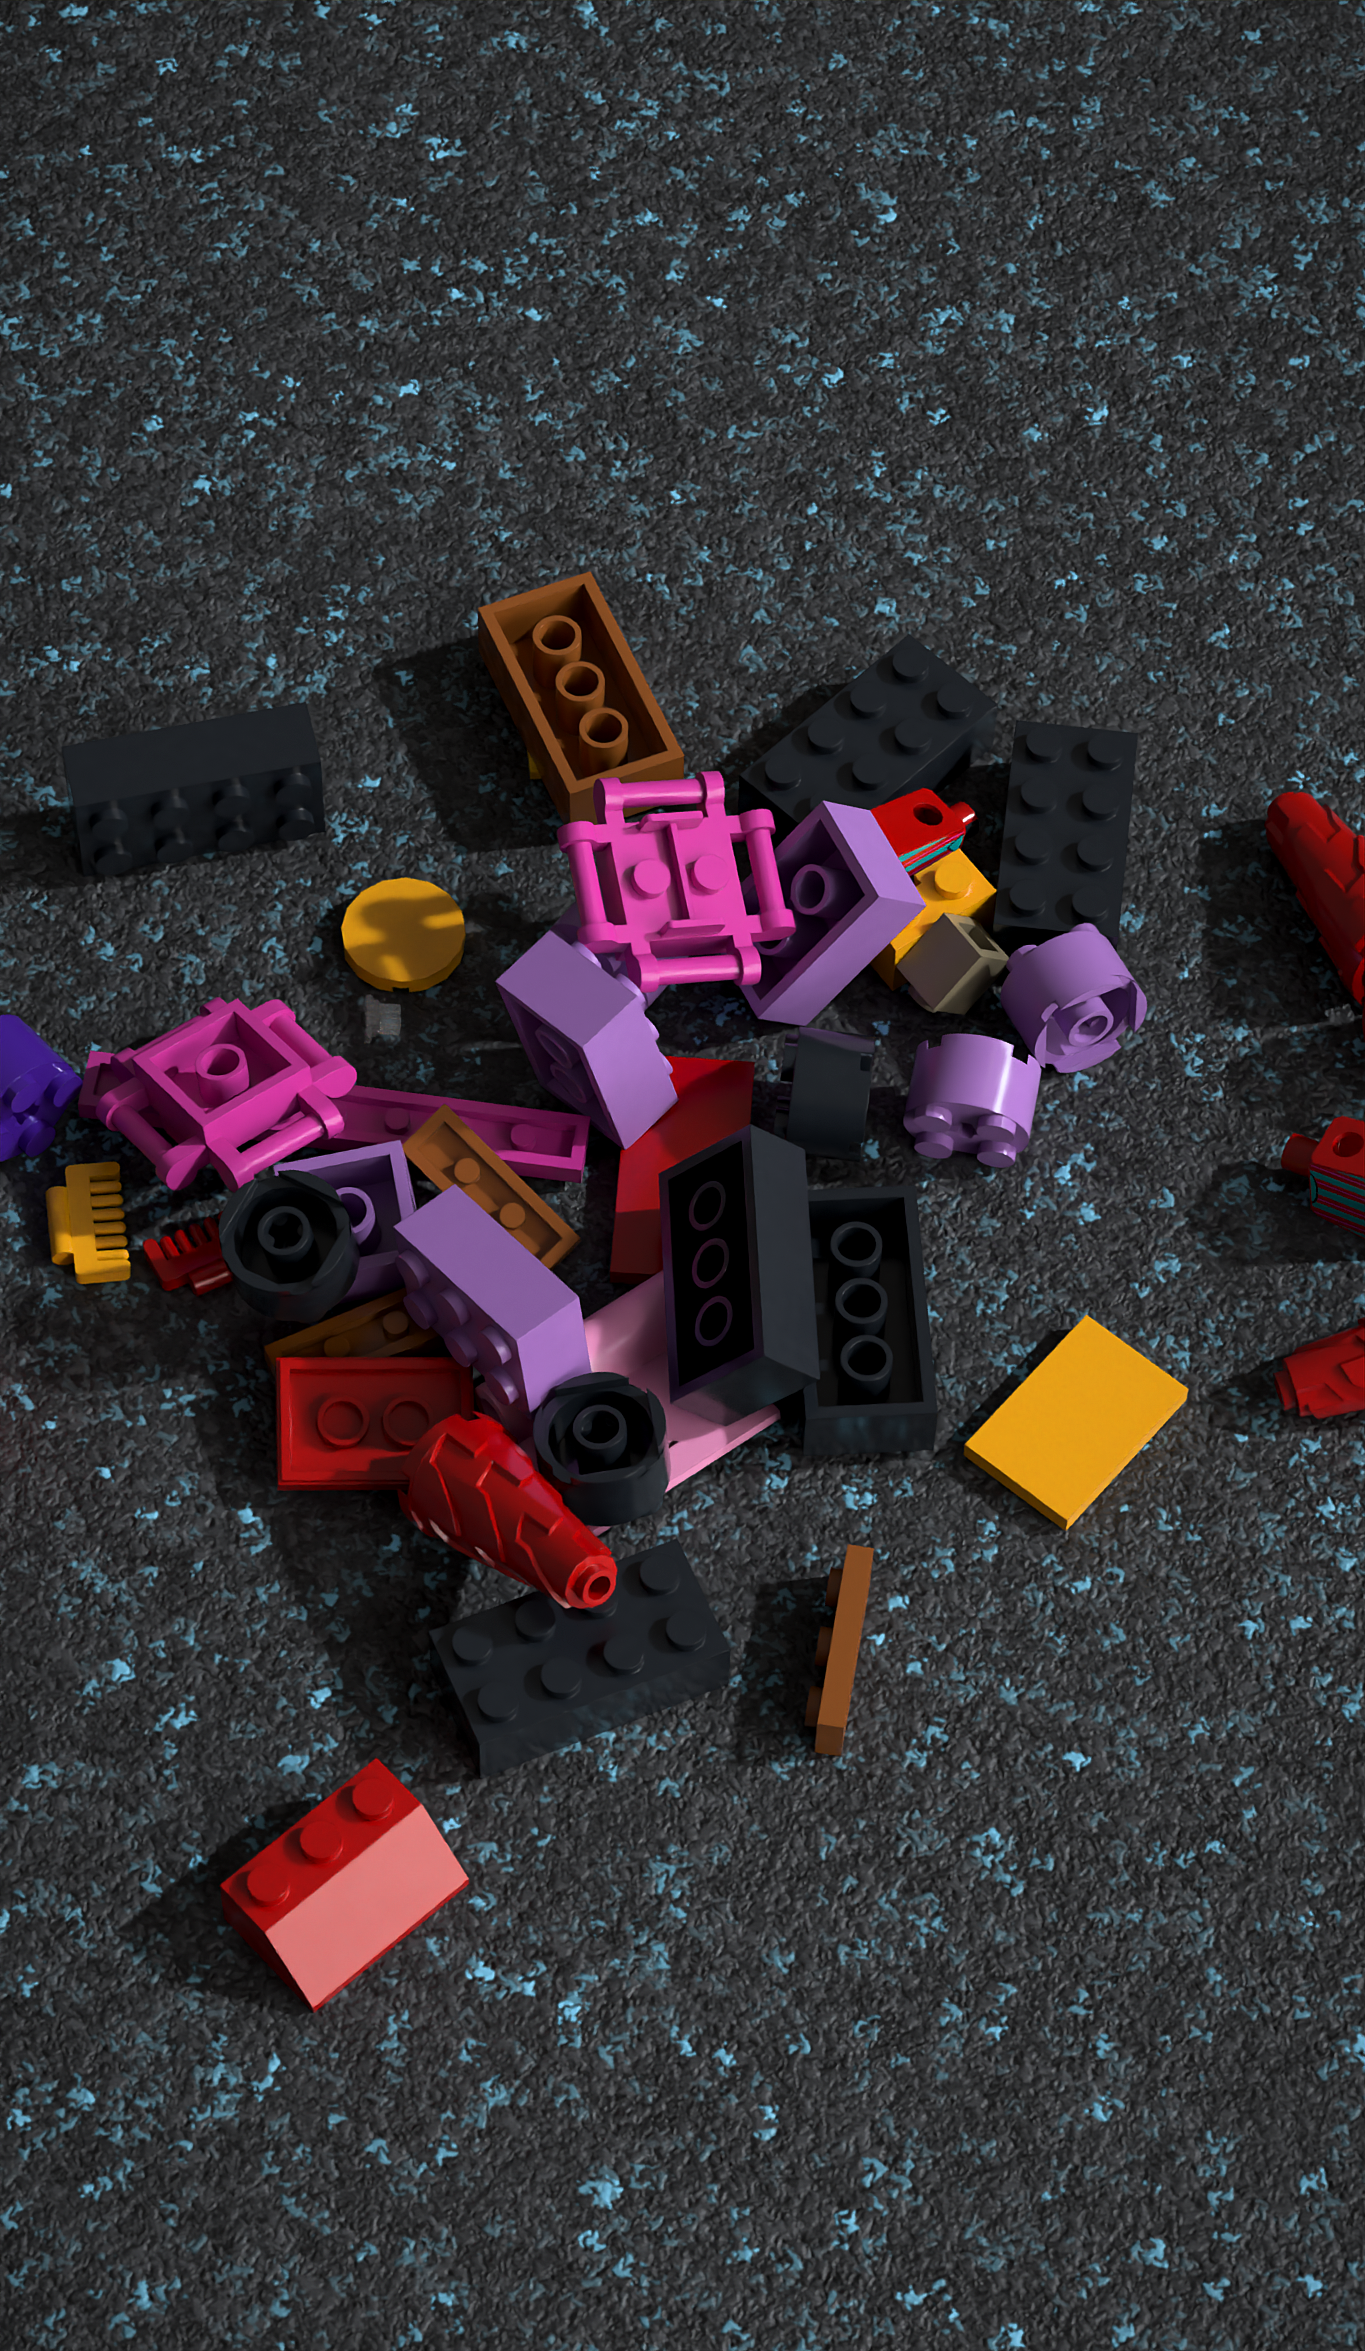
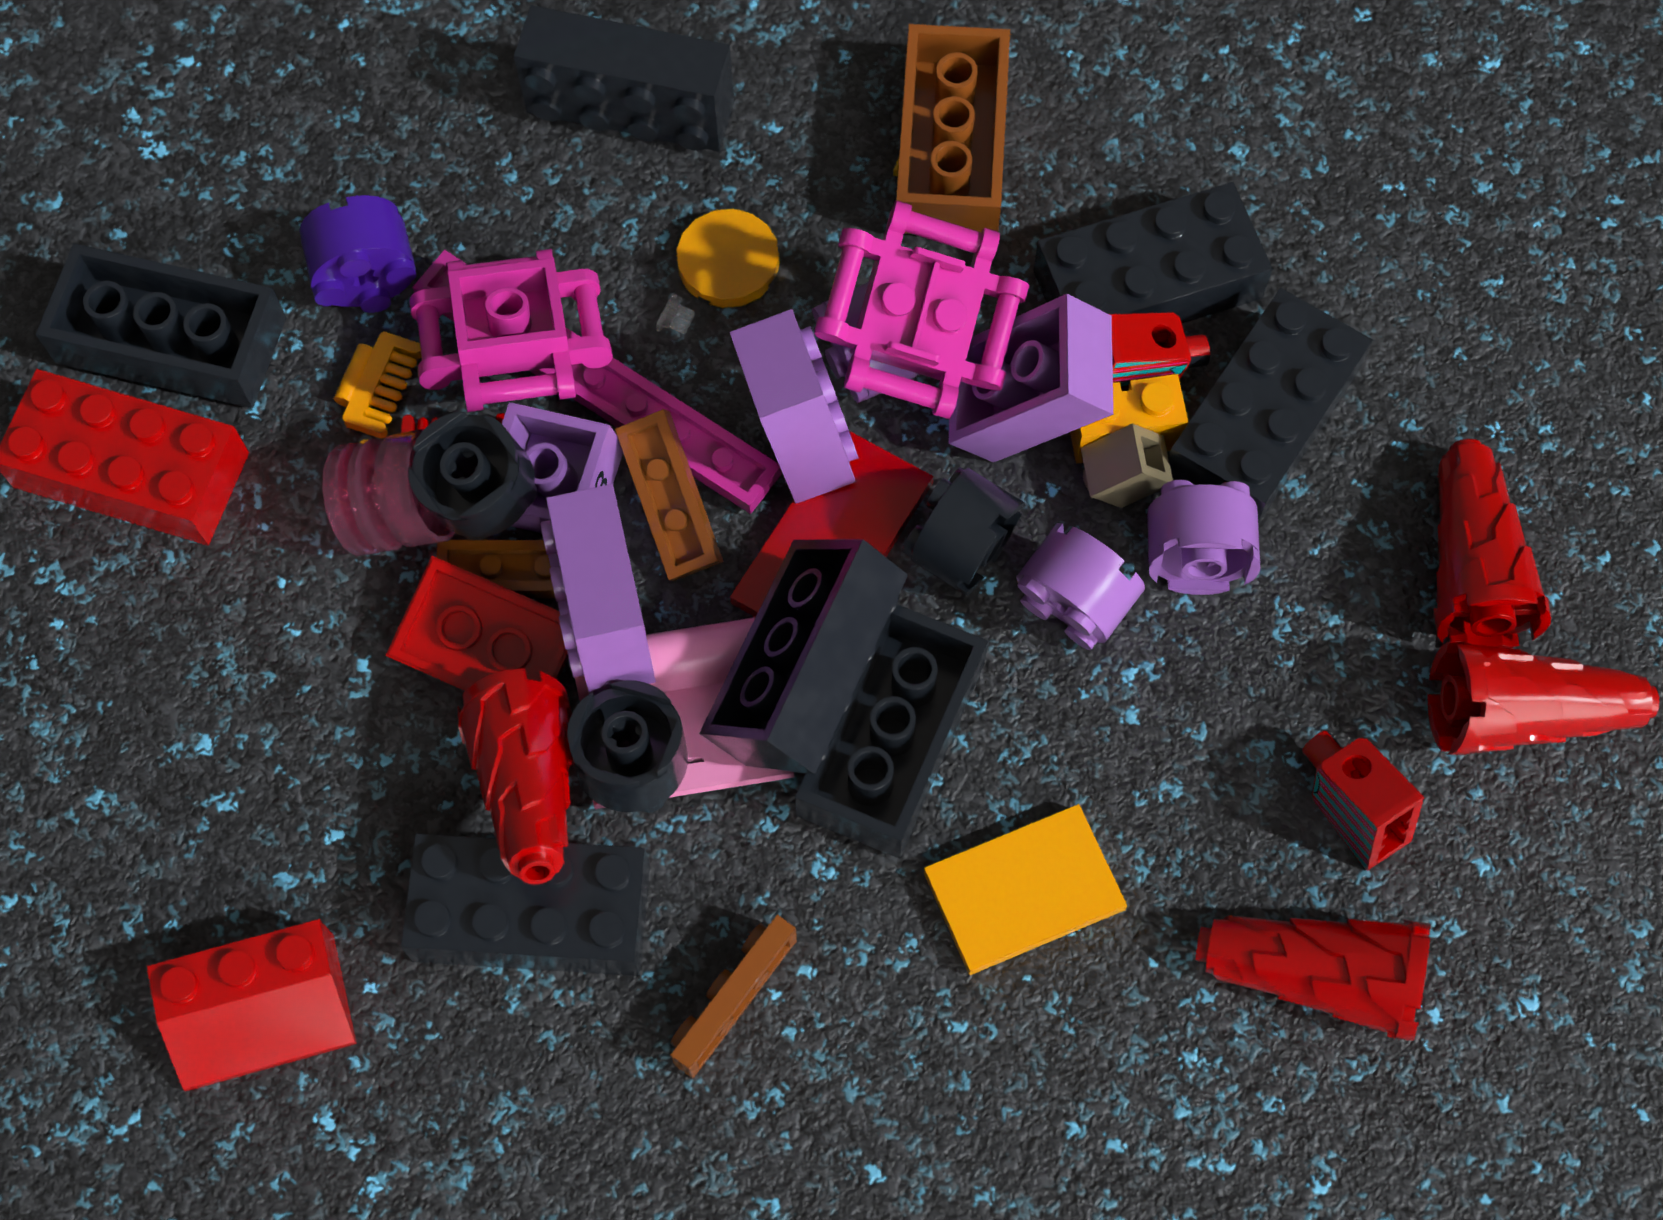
camera: 30 degrees right, 10 degrees up
(194, 1314) = (372, 497): none -> clear pink wheel

